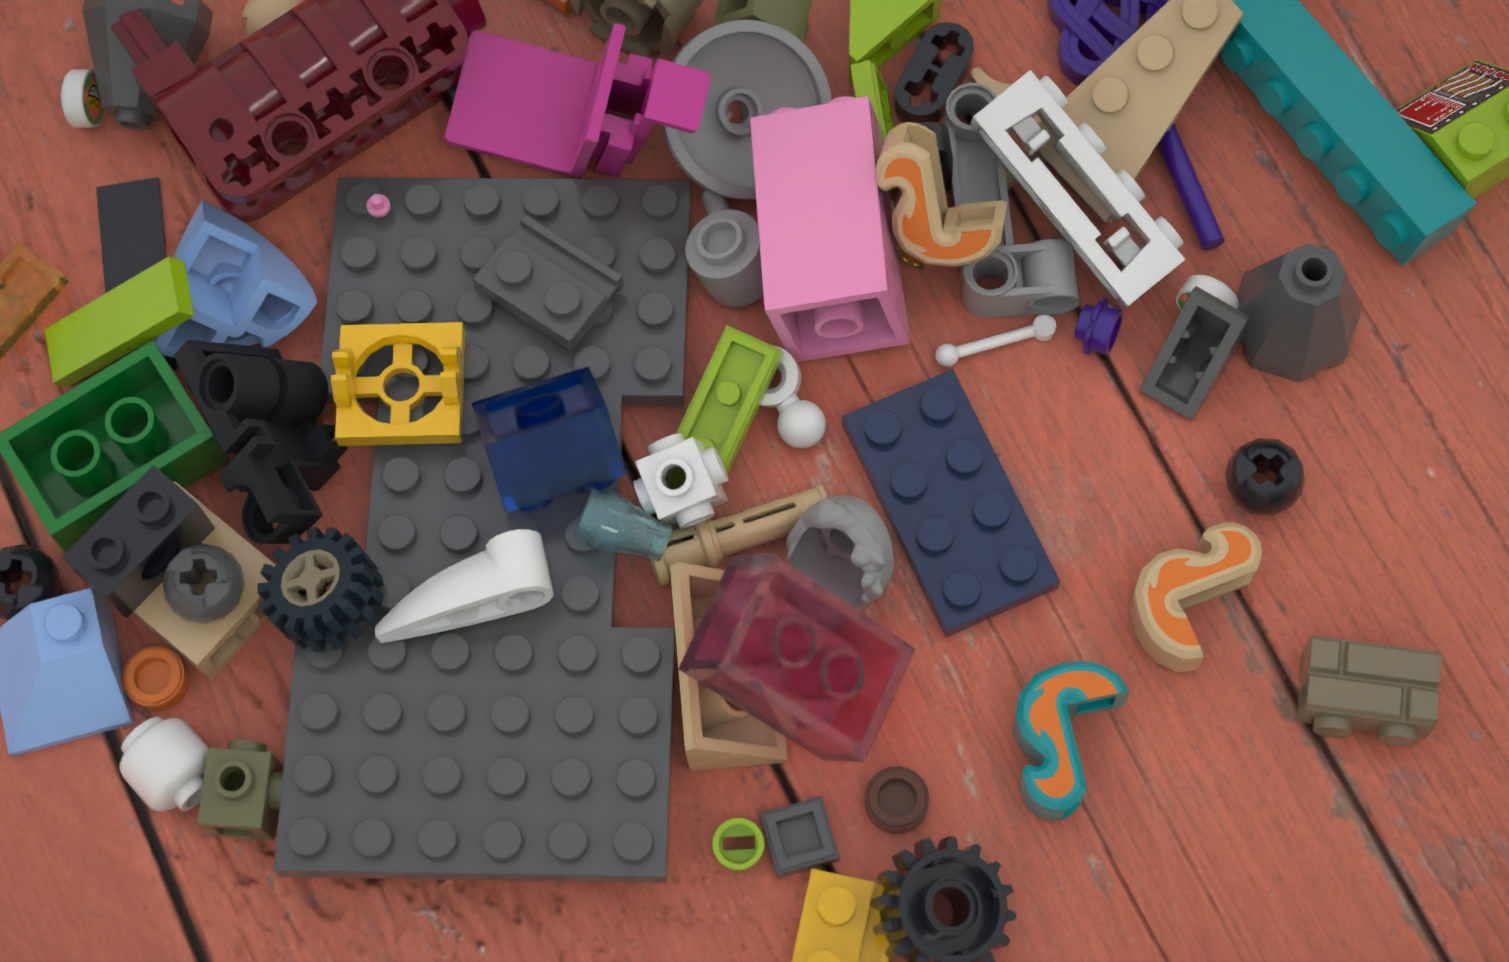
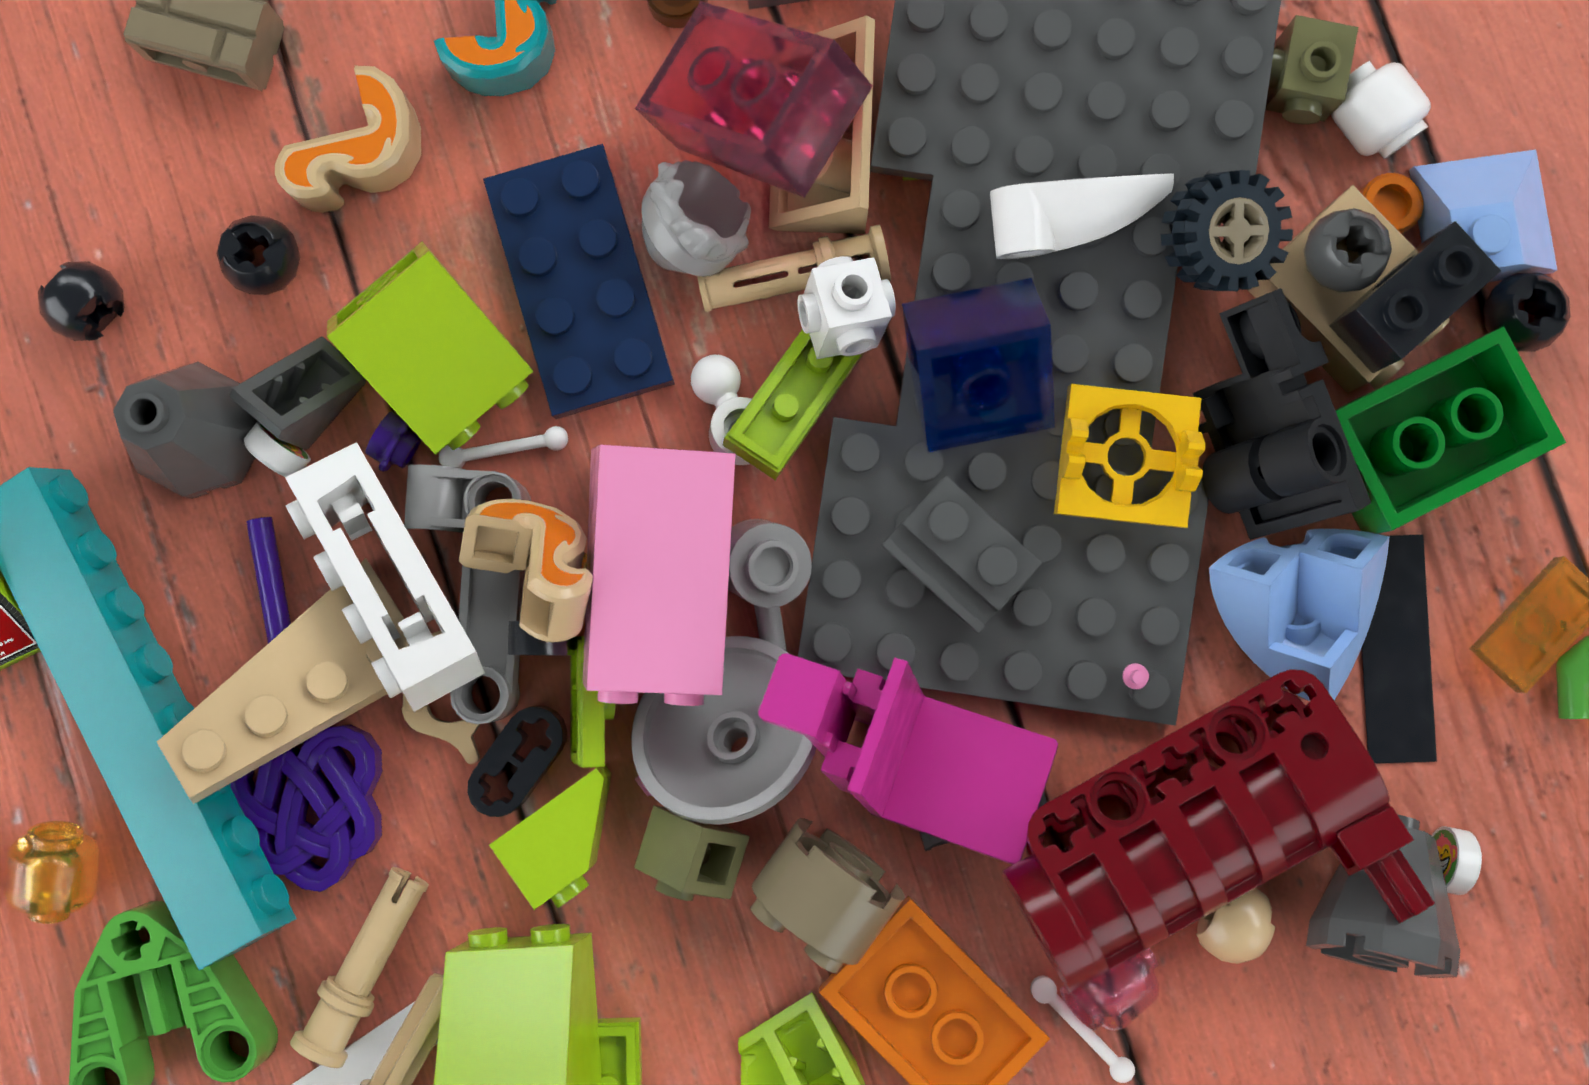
camera: 175 degrees left, 15 degrees up
(119, 321) = (1421, 569): lime tile -> none
(621, 527) = (915, 259): clear light blue cone -> none
(1085, 410) = (429, 350): none -> lime slope
(1429, 402) = (81, 301): none -> black piece

